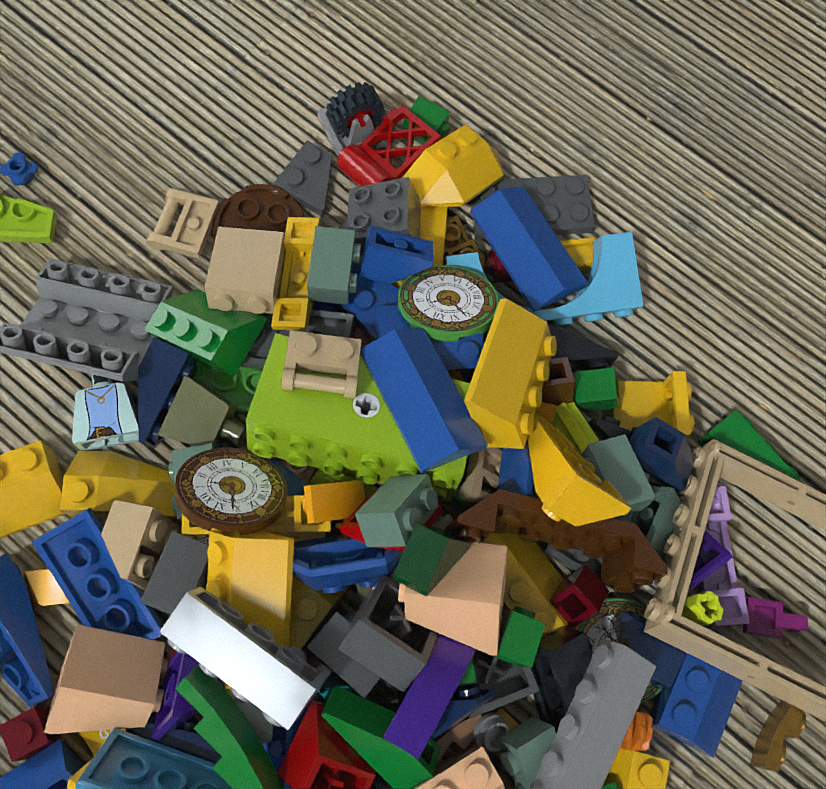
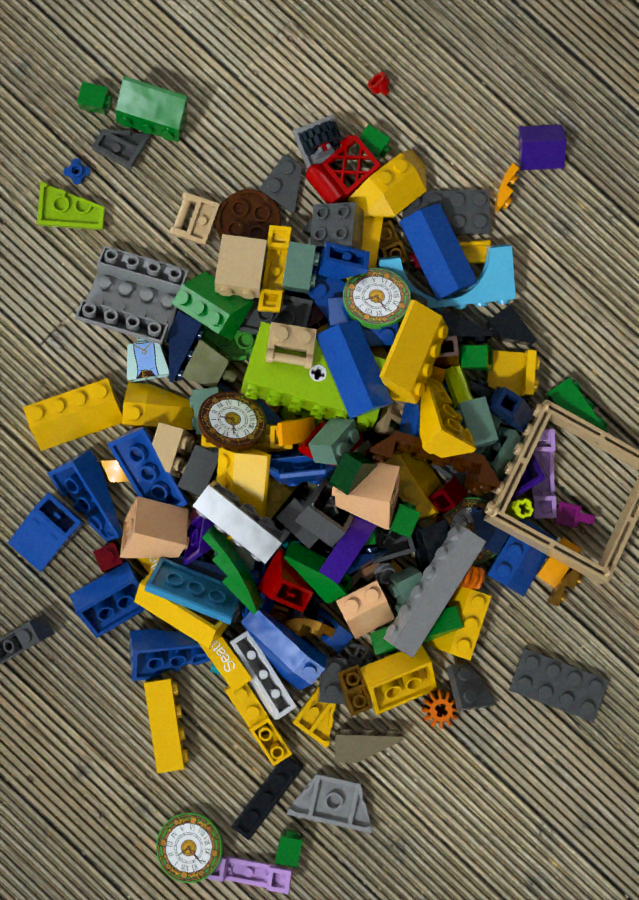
camera: 10 degrees right, 15 degrees up
(47, 79) = (94, 98): none -> green brick
(82, 136) = (121, 146): none -> dark grey wing
(124, 83) = (151, 109): none -> green slope
(429, 57) = (379, 83): none -> red tile
(608, 173) = (504, 192): none -> light orange slope
(641, 348) = (510, 328): none -> black slope
(648, 126) = (541, 147): none -> dark purple slope
(756, 709) = (553, 570): none -> light orange slope

